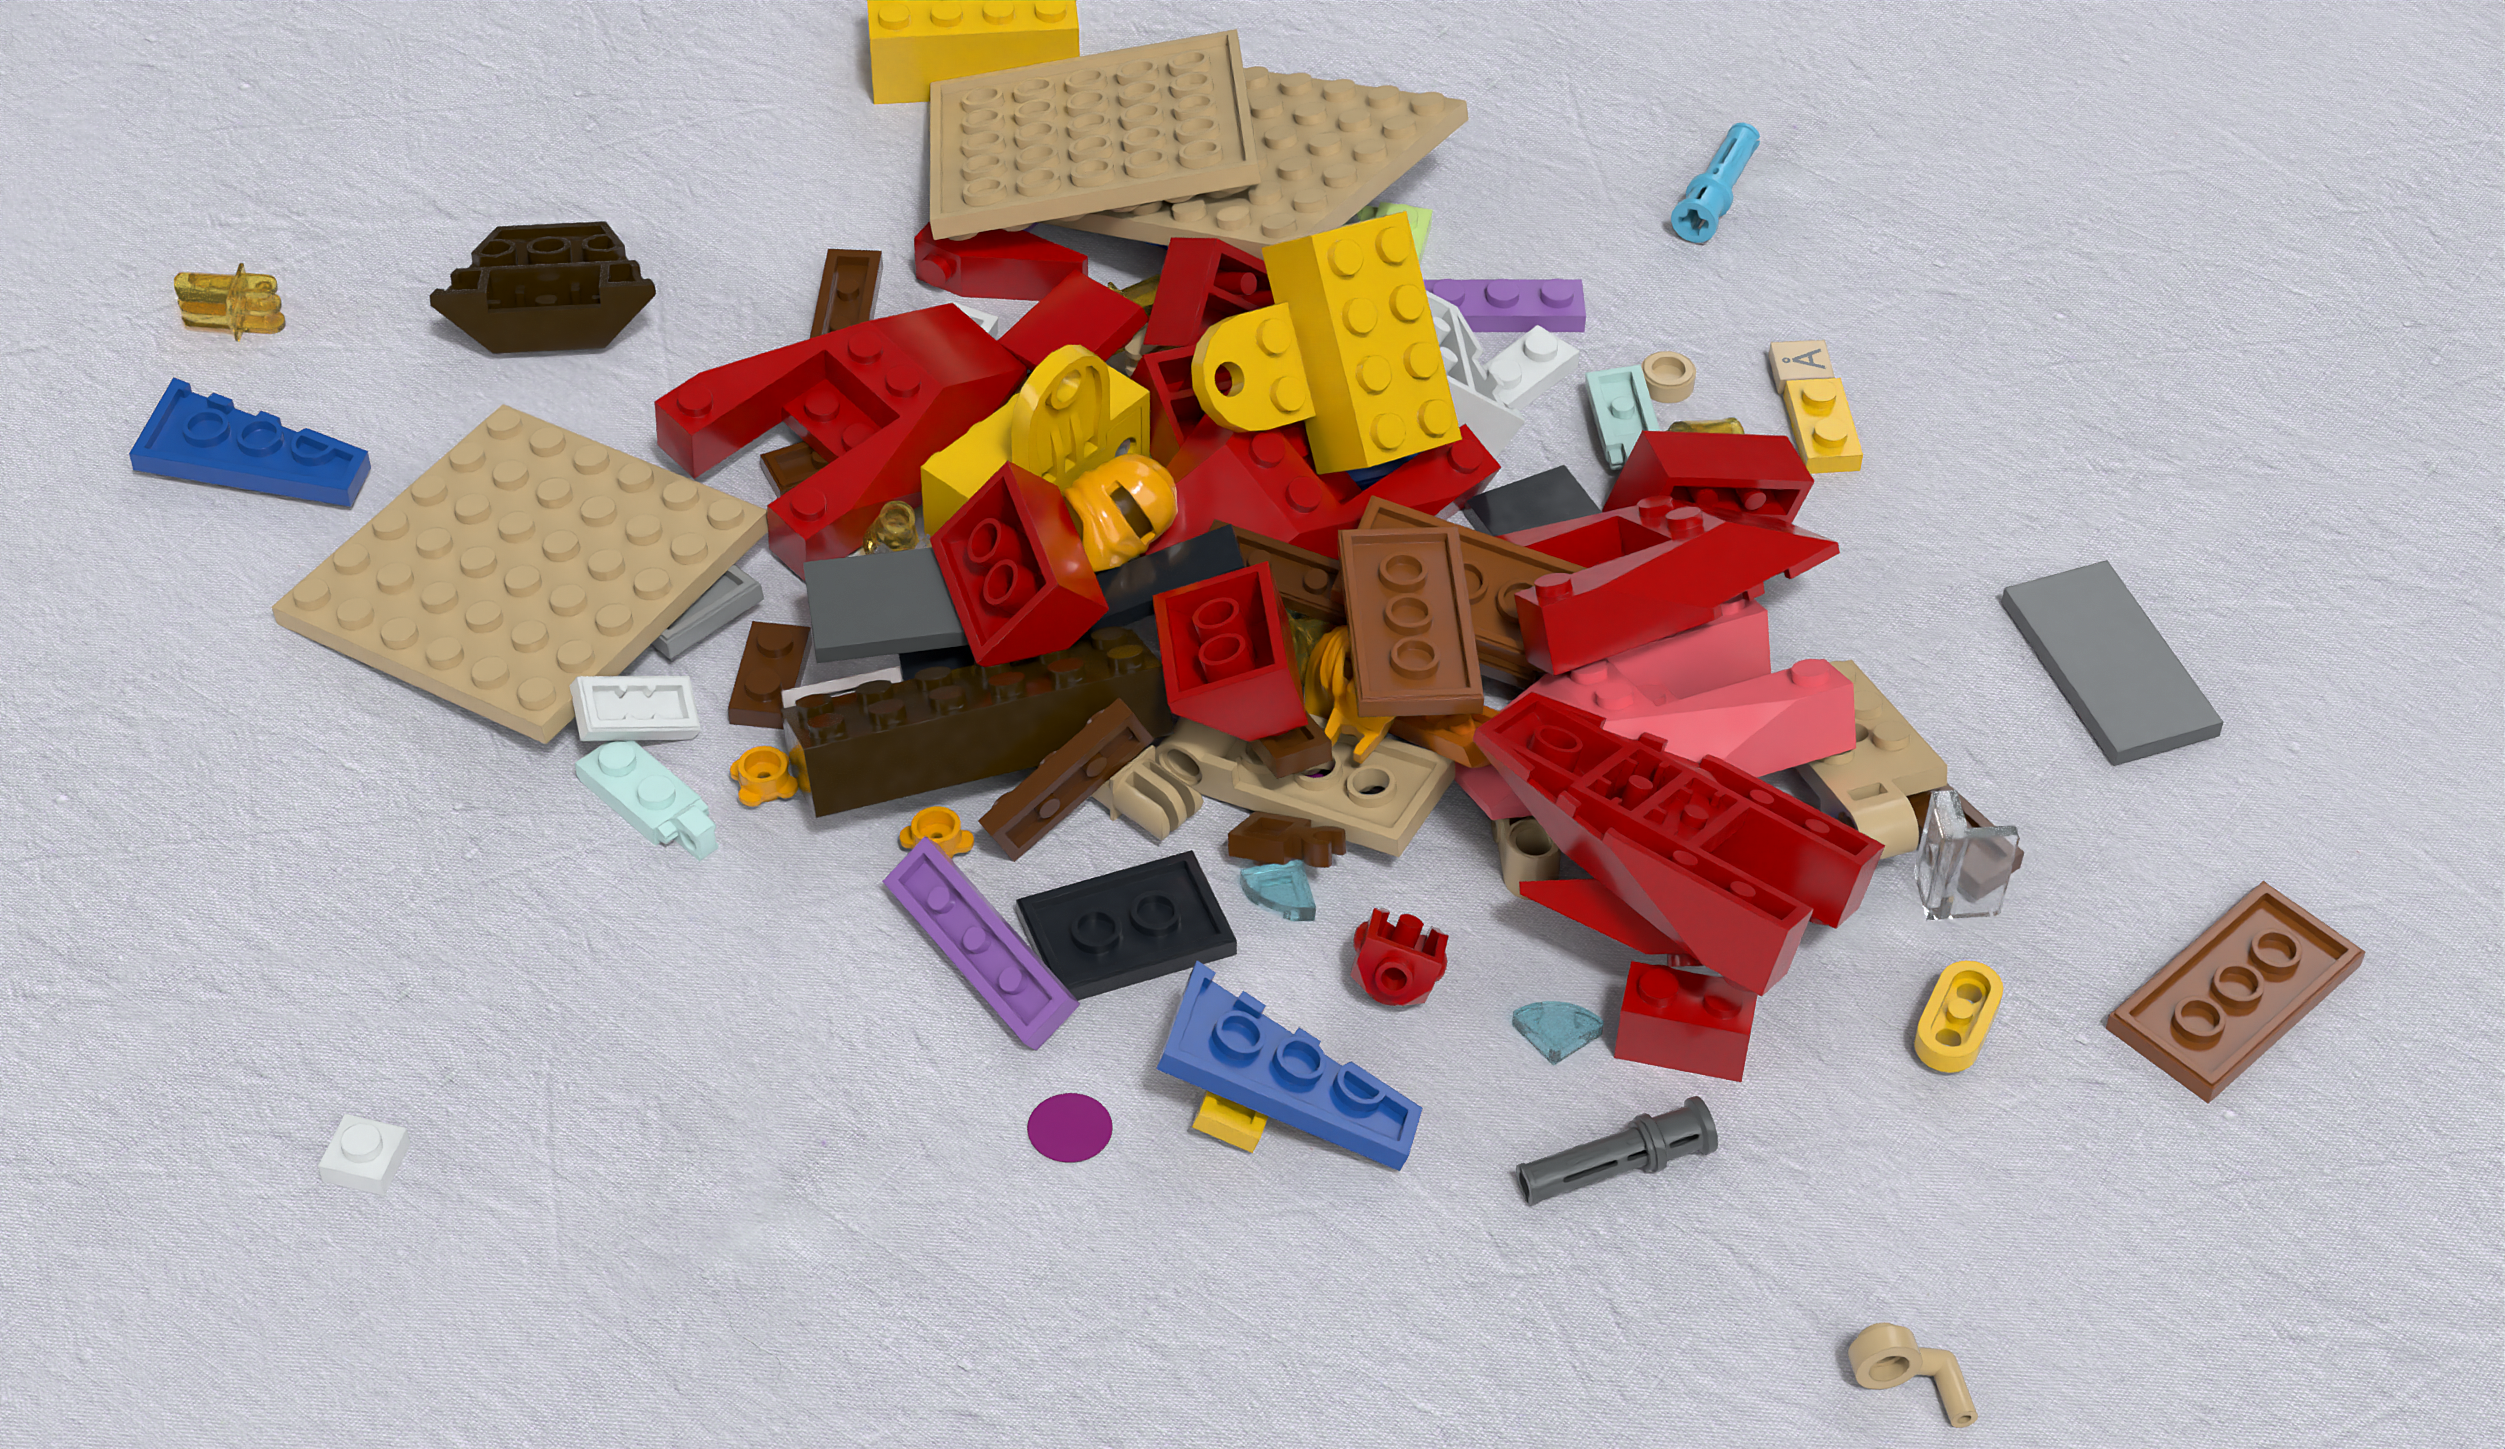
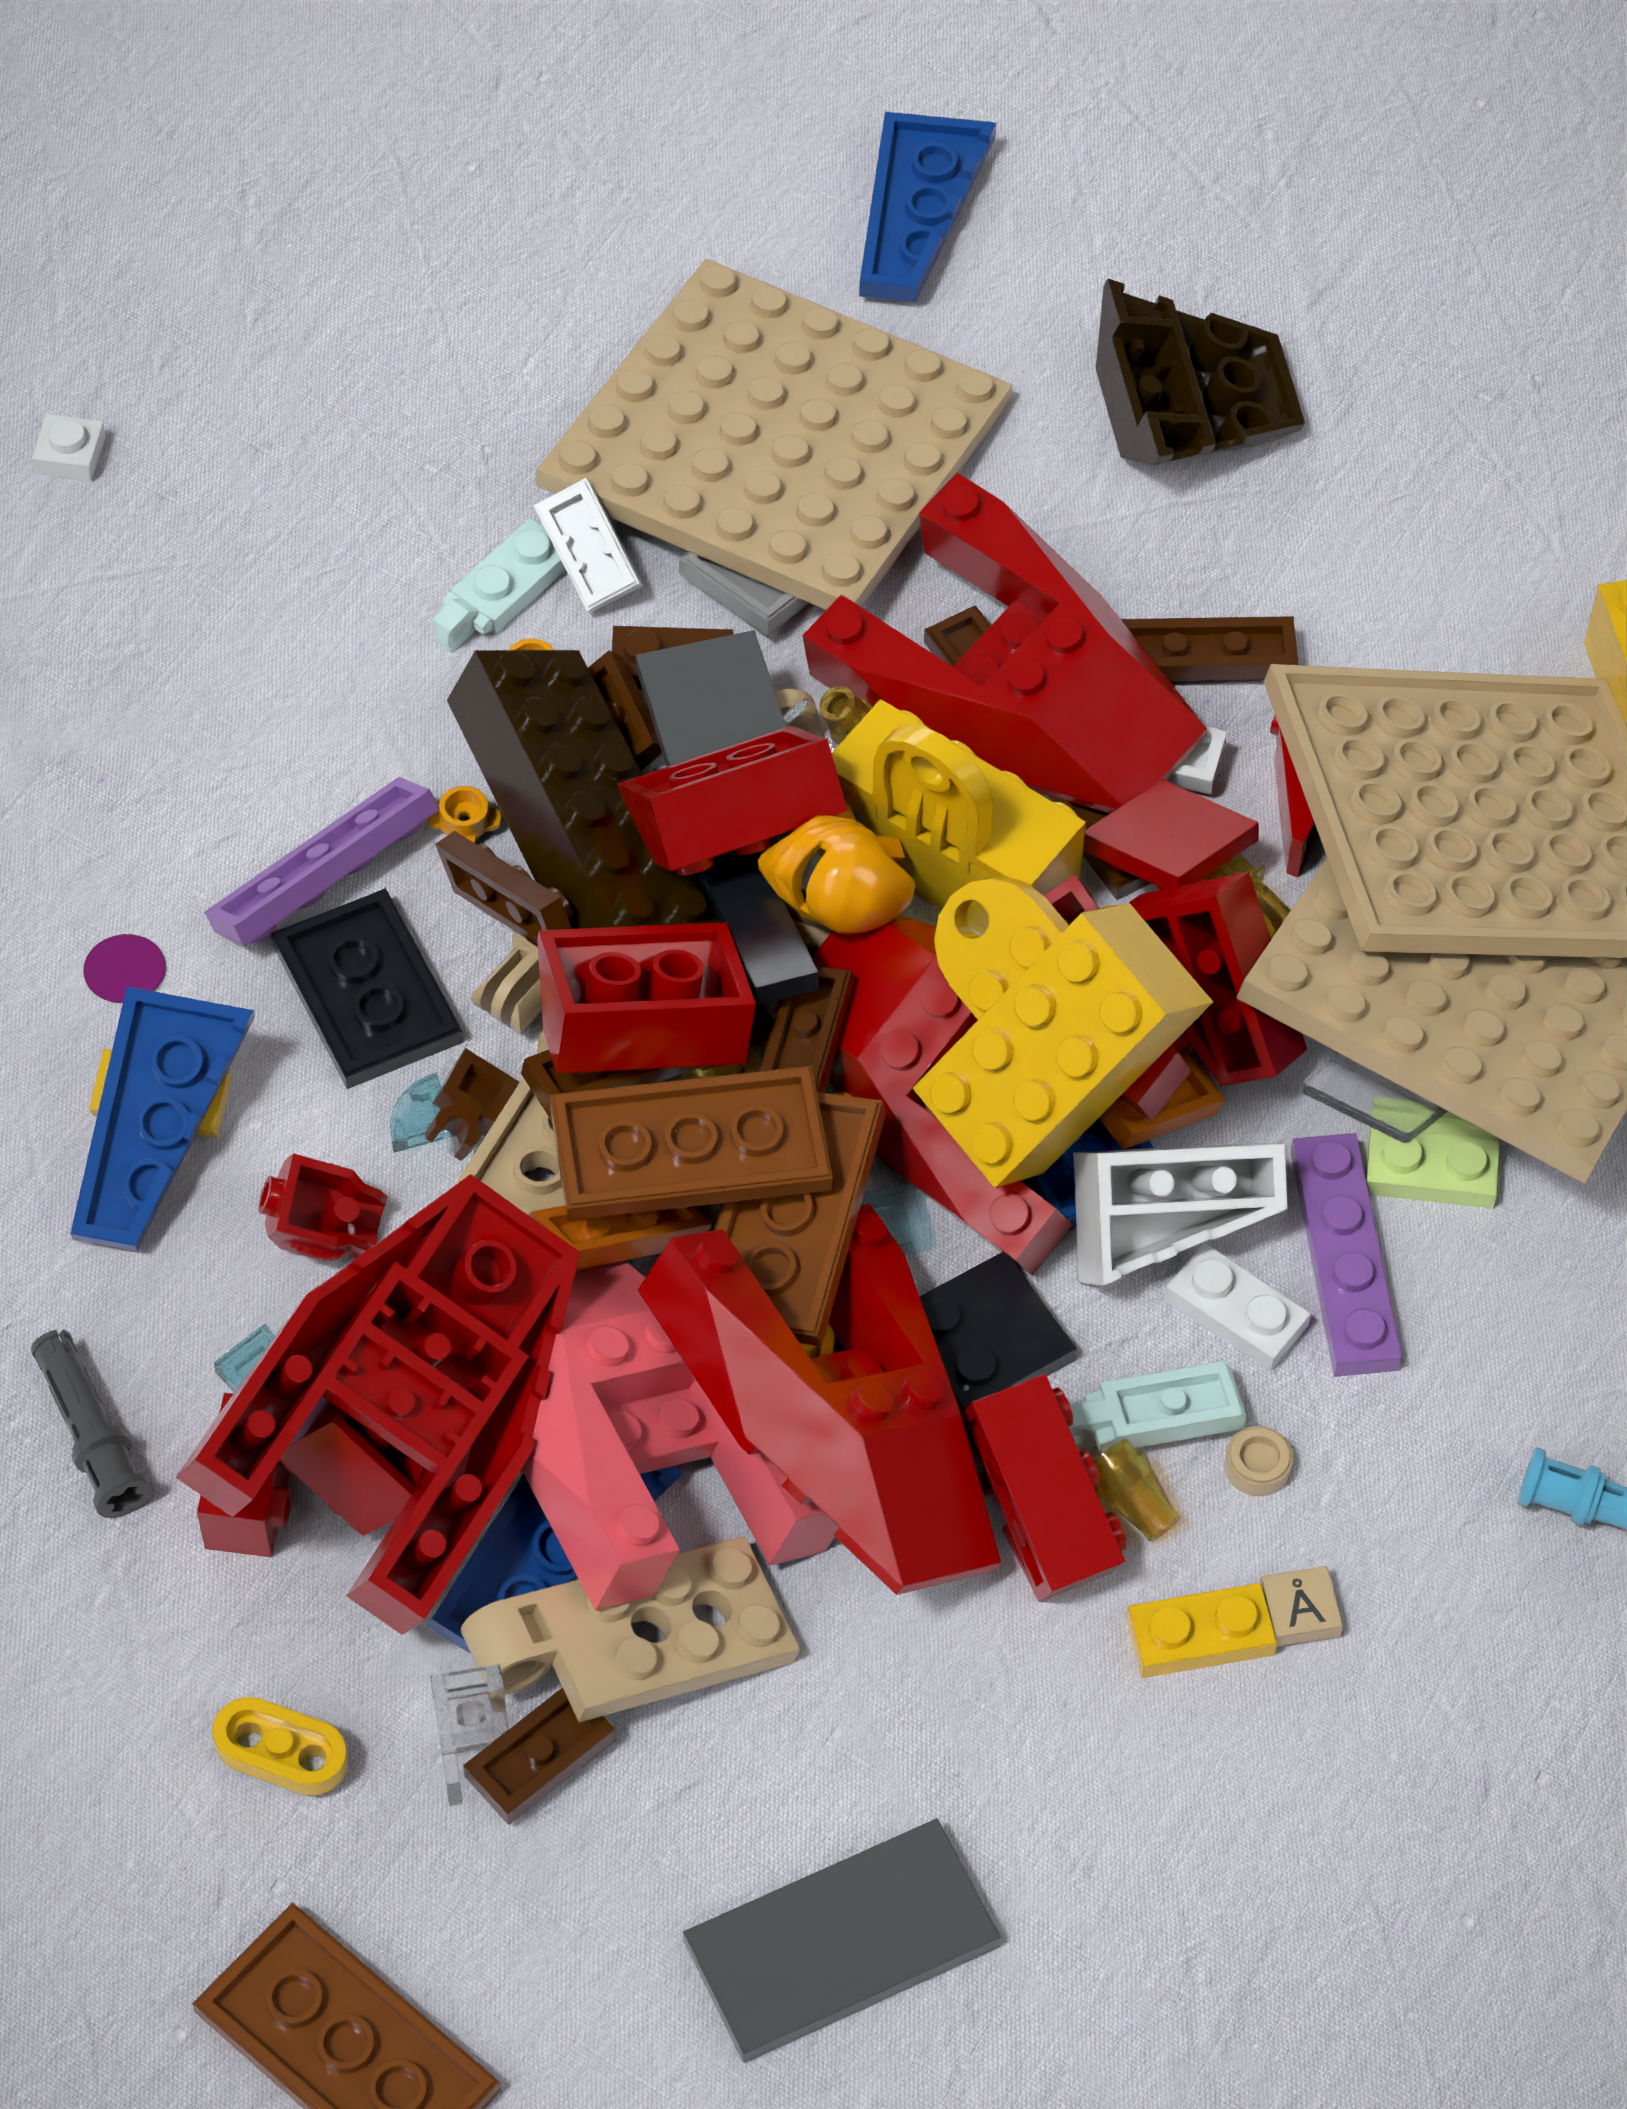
camera: 85 degrees right, 10 degrees up
(230, 301) = (1117, 143): clear yellow arm -> none

